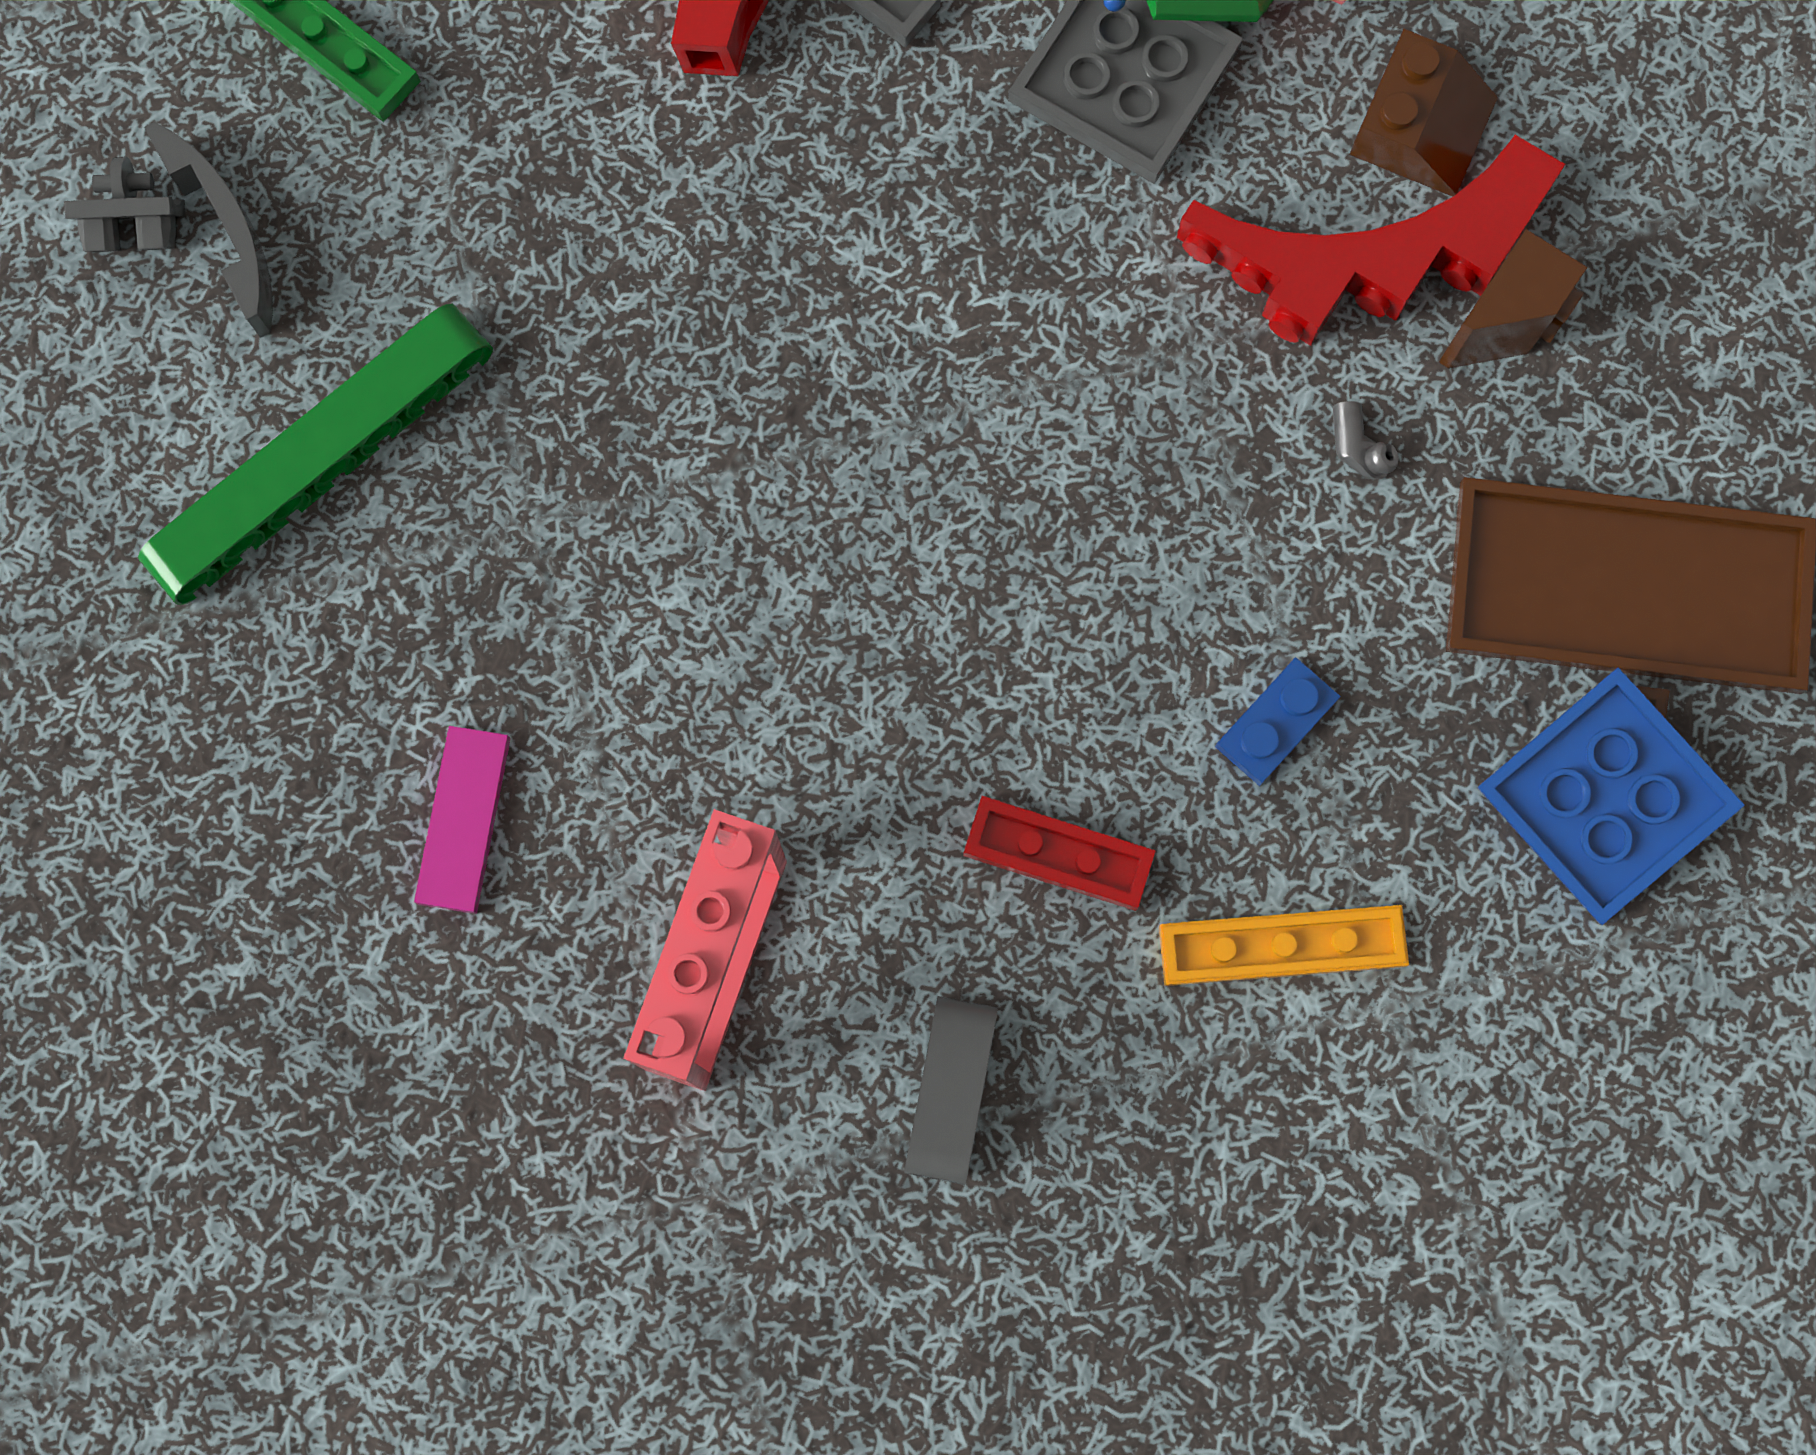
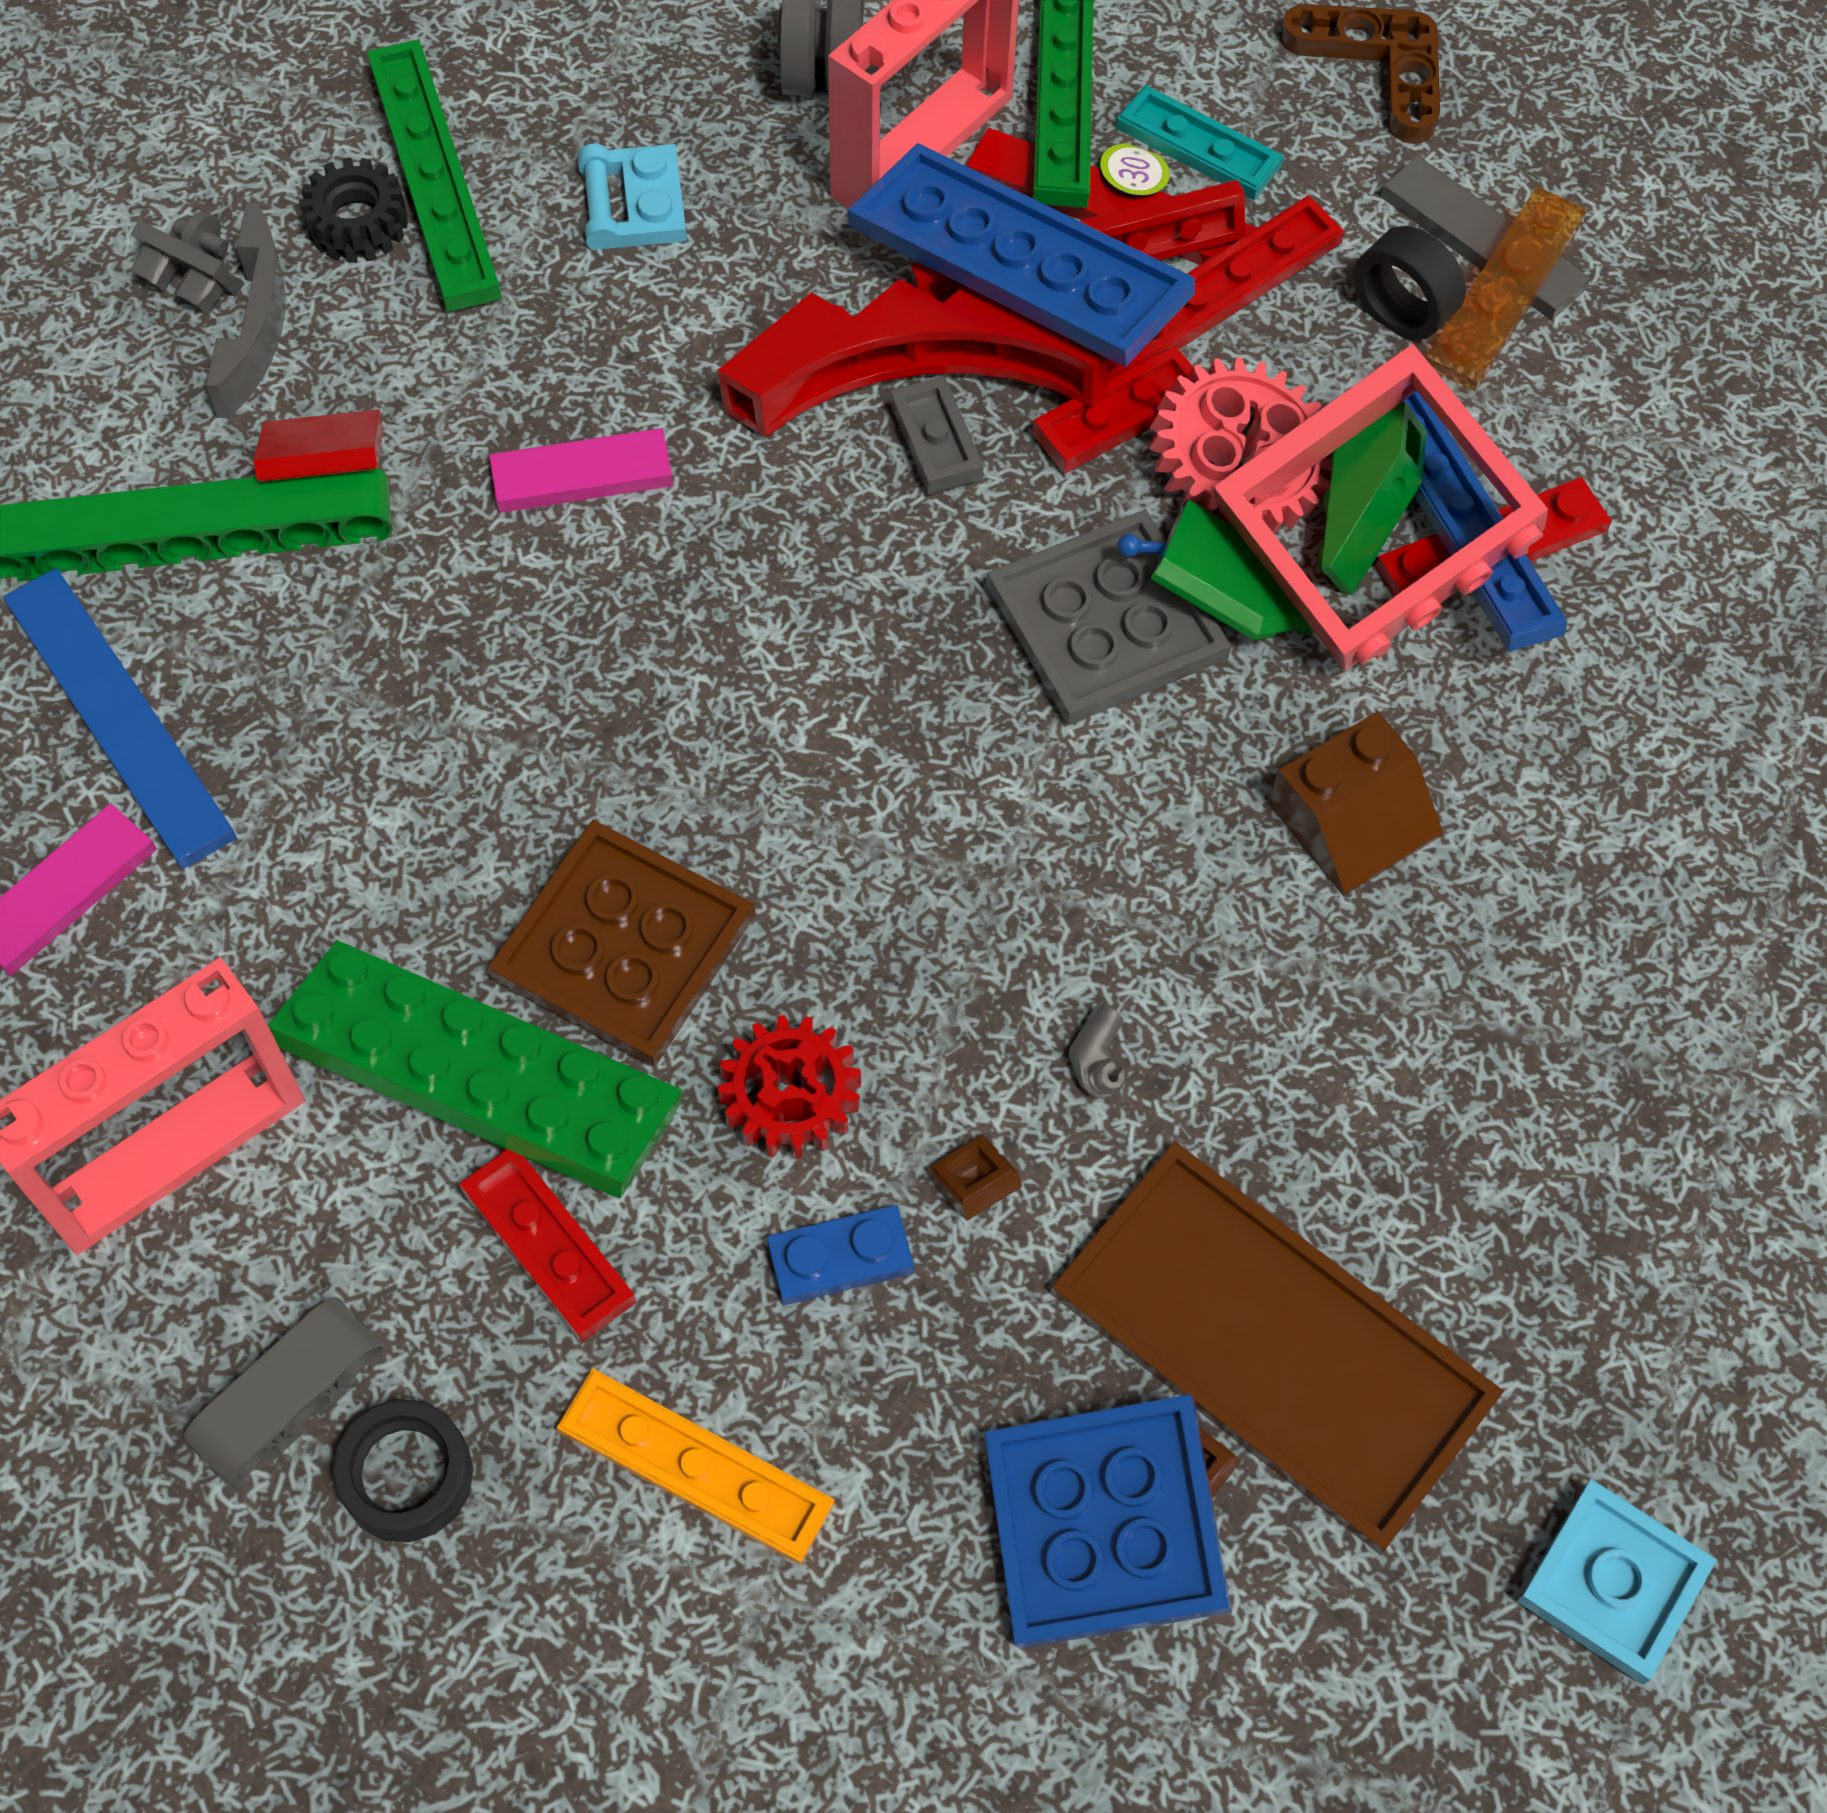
camera: 30 degrees right, 15 degrees down
(215, 49) = (349, 186): none -> black tyre
(381, 312) = (319, 445): none -> red tile
(391, 649) = (120, 719): none -> blue tile
(606, 199) = (581, 470): none -> dark pink tile
(906, 753) = (477, 1068): none -> green plate
(942, 582) = (622, 942): none -> reddish brown plate
(1125, 1079) = (370, 1429): none -> black tyre
(1130, 616) = (784, 1058): none -> red gear
(1337, 599) = (975, 1177): none -> reddish brown tile
(1380, 266) = (1227, 912): red arch -> none
(1521, 304) = (1317, 1007): reddish brown slope -> none

